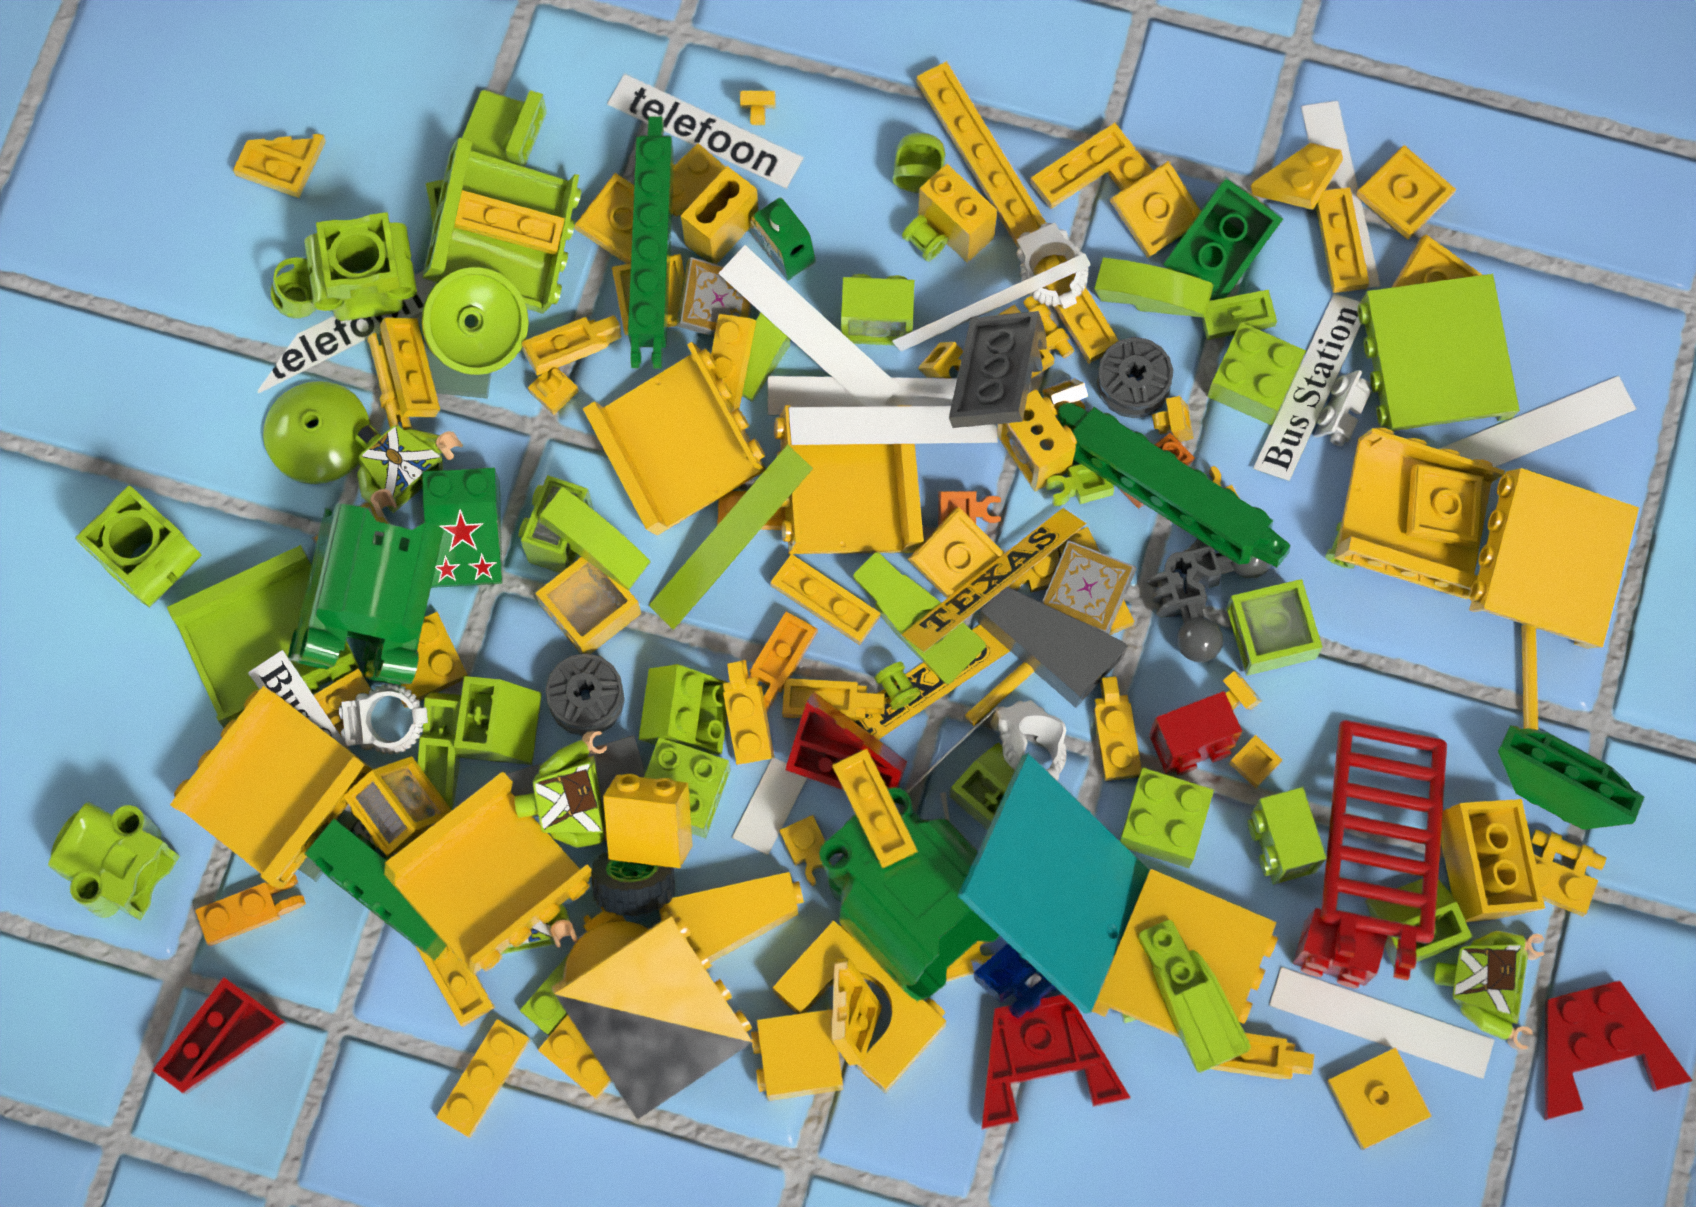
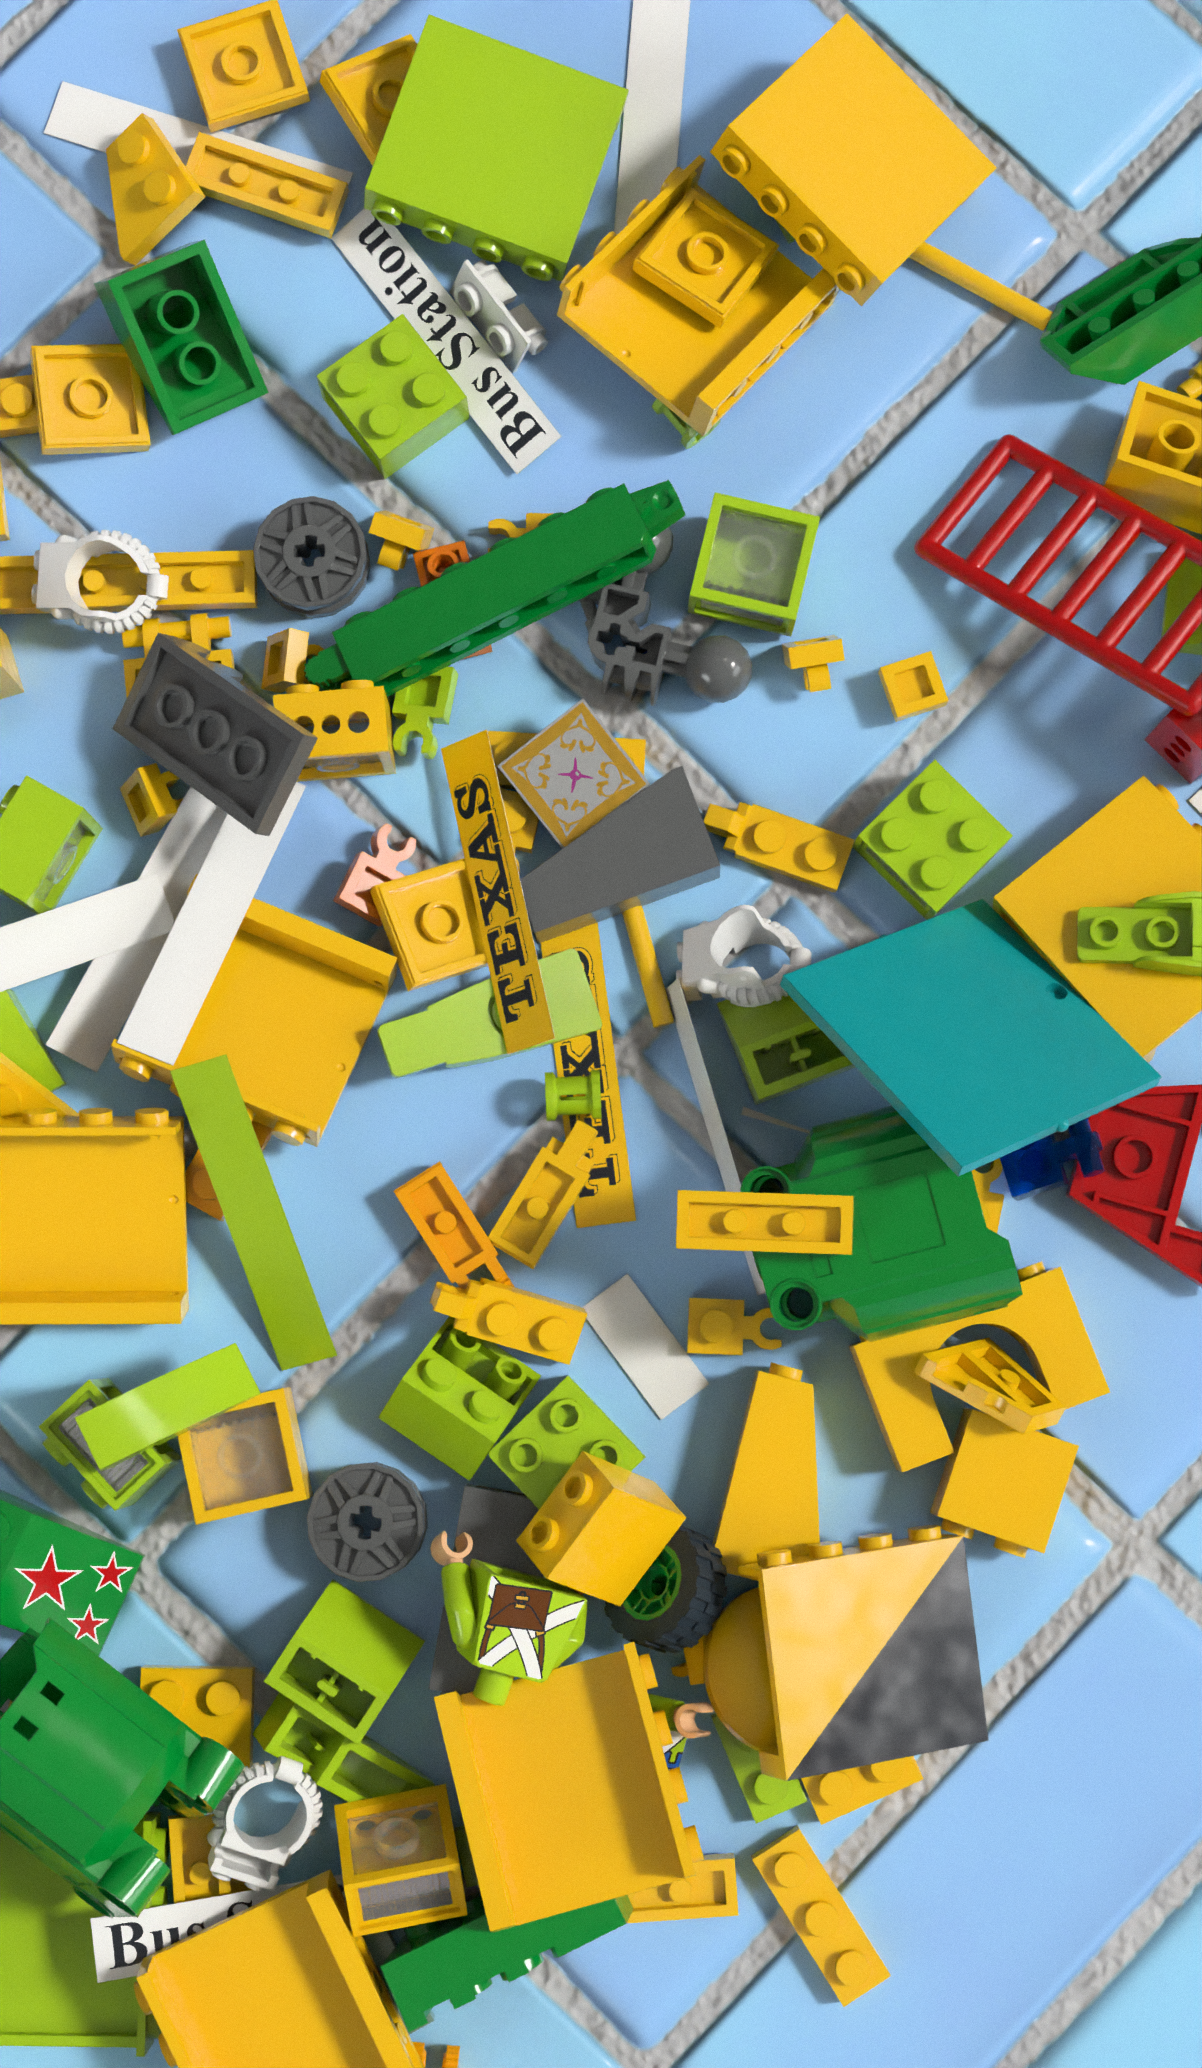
camera: 65 degrees left, 10 degrees up
(825, 599) = (402, 1129): yellow plate -> none
(829, 737) = (627, 1220): red wedge -> none
(992, 302) = (110, 687): white sticker -> none
(1152, 288) = (201, 465): lime slope -> none
(1195, 734) = (845, 742): red piece -> none
(1226, 314) = (291, 382): lime plate -> none
(1286, 836) = (1041, 700): lime piece -> none

